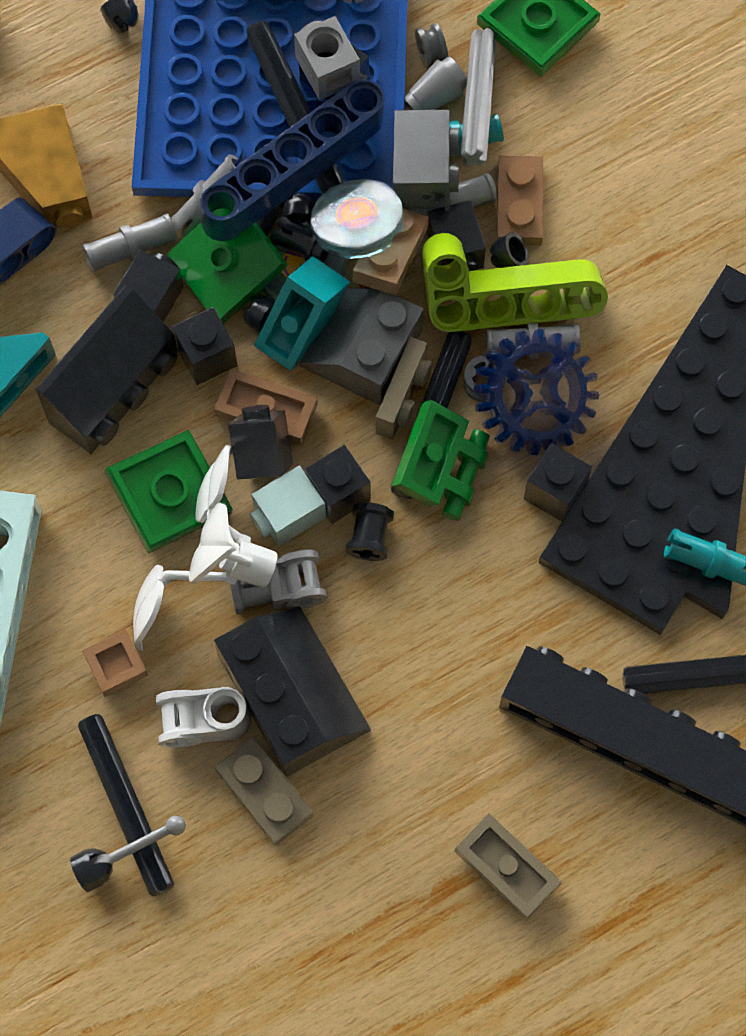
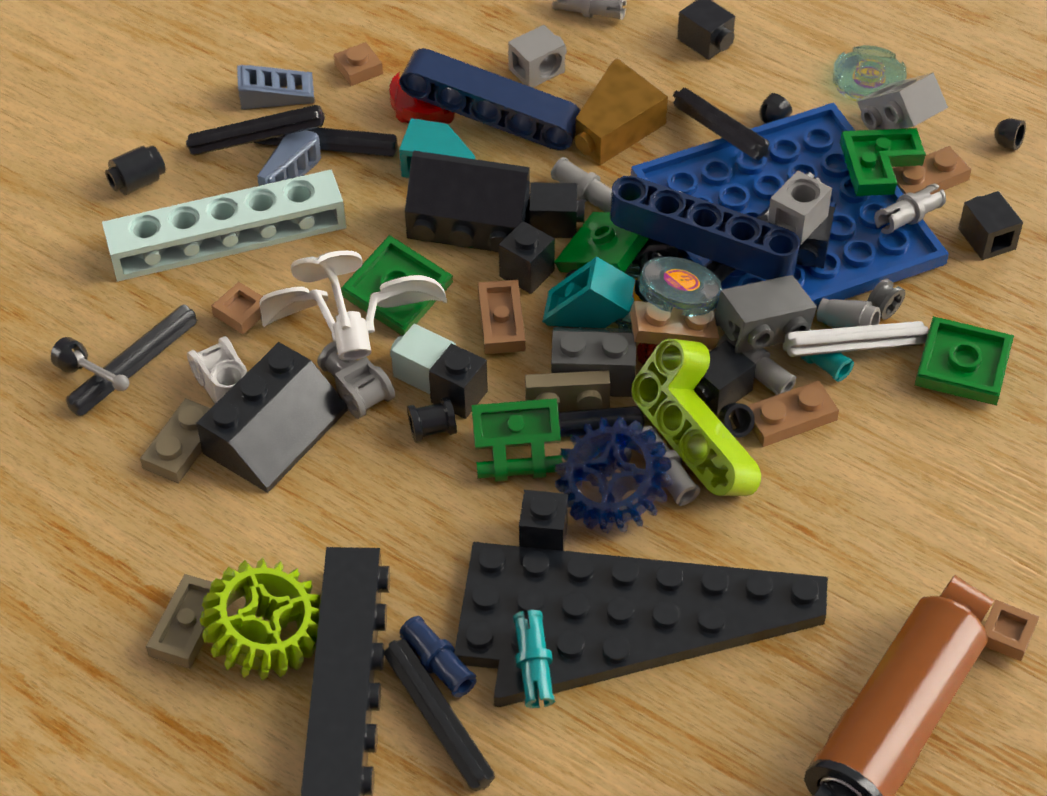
camera: 65 degrees right, 20 degrees down
(124, 72) = (721, 123): none -> black axle
(260, 443) = (462, 314): black brick -> none
(571, 775) = (252, 640): none -> lime gear
(657, 645) = (438, 656): none -> dark blue pin

